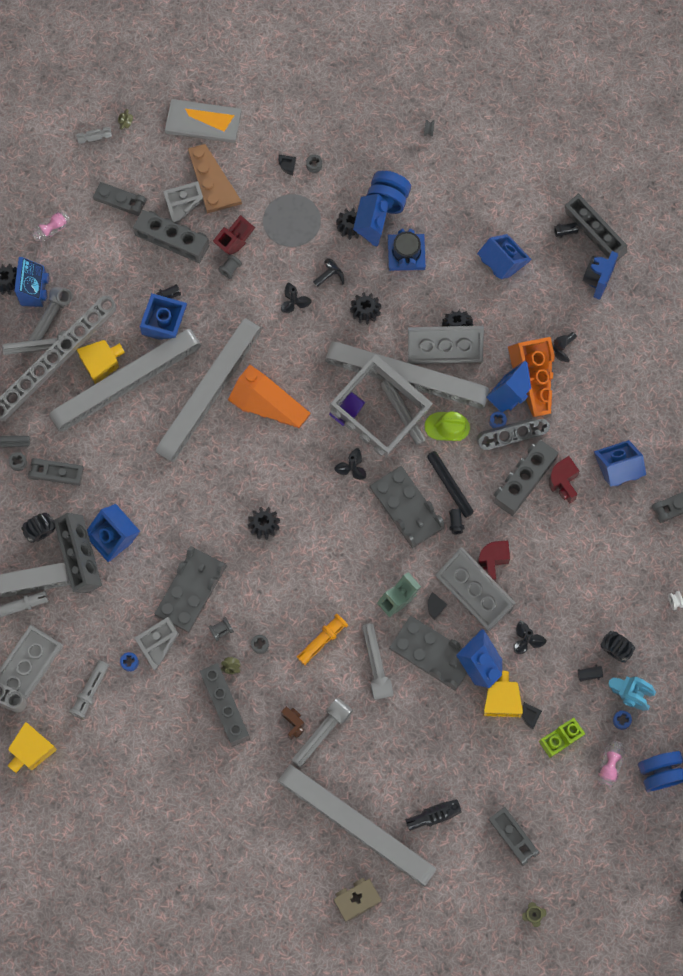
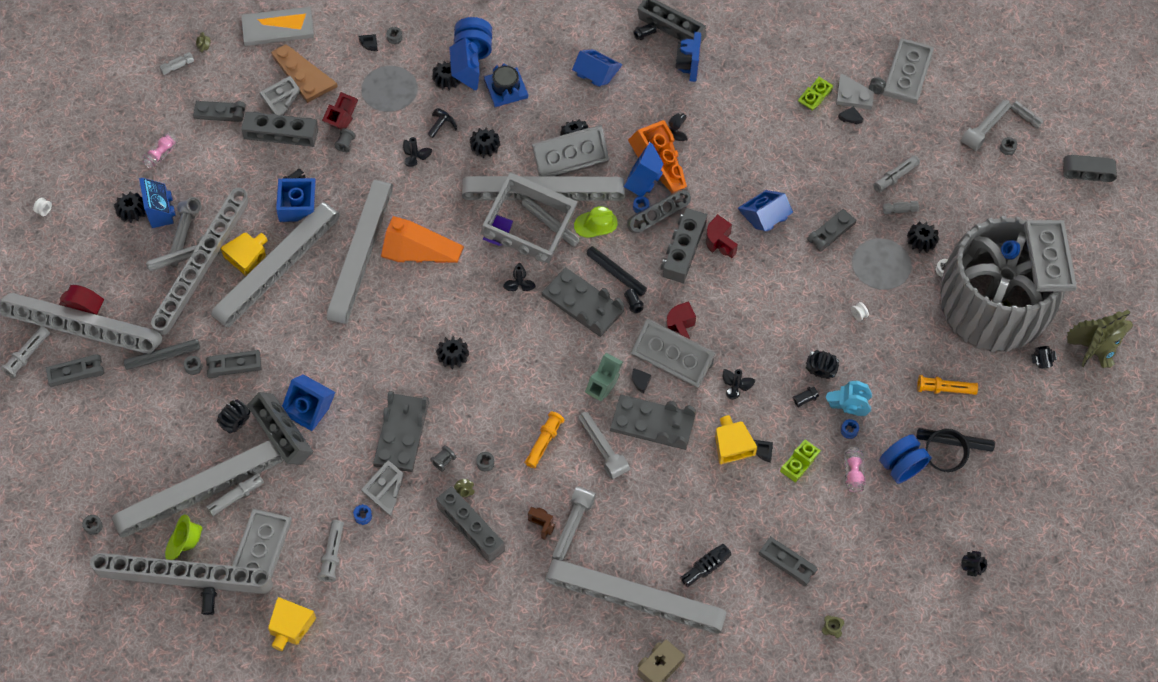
camera: 20 degrees left, 10 degrees down
(481, 660) = (701, 412): blue slope -> none

